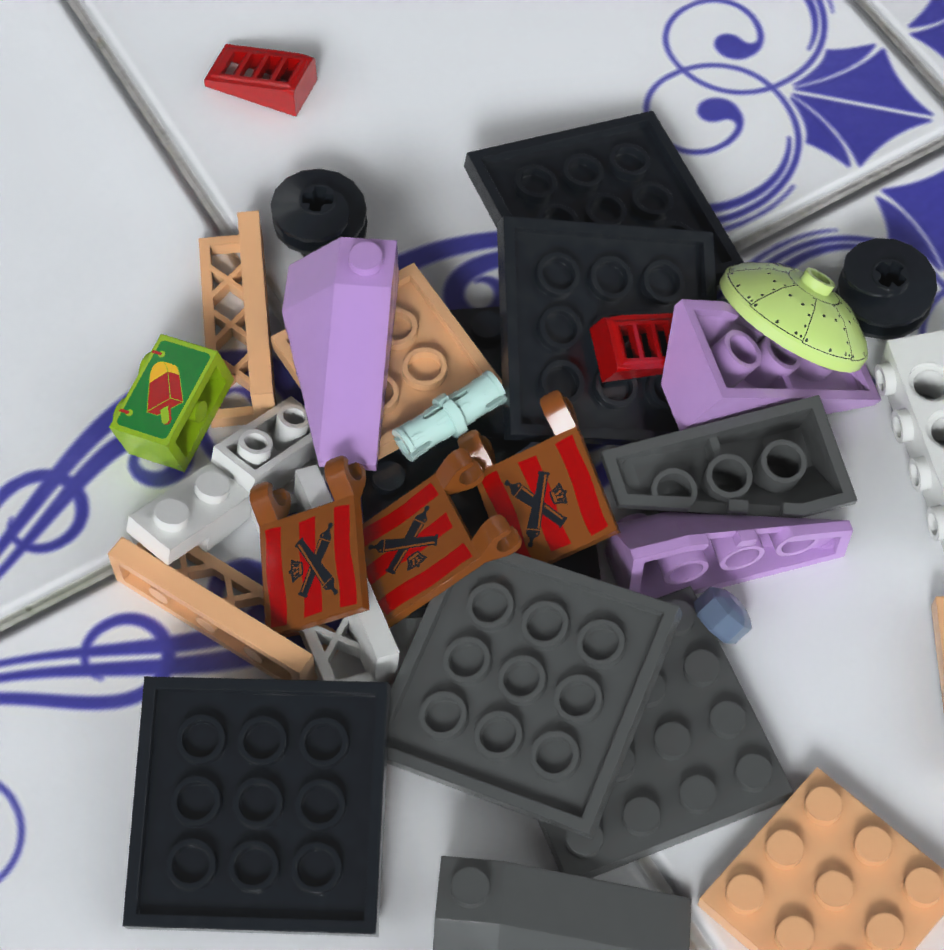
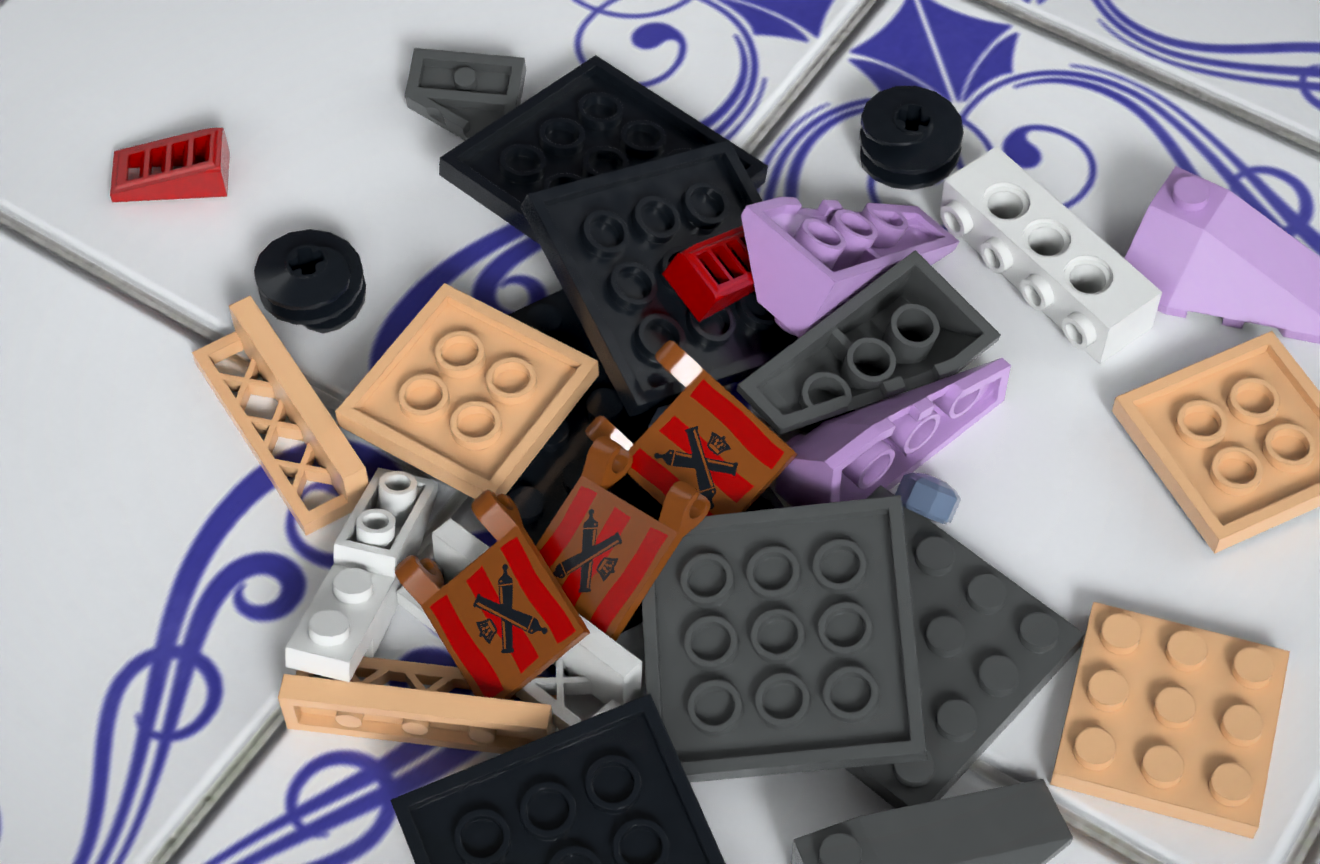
camera: 25 degrees left, 5 degrees down
(171, 402) = (257, 522): brick -> none
(340, 338) = (411, 373): lavender wedge -> none
(449, 415) = (566, 413): light aqua pin -> none
(529, 98) = (463, 88): none -> dark grey wing
(797, 312) = (848, 181): yellowish green dish -> none

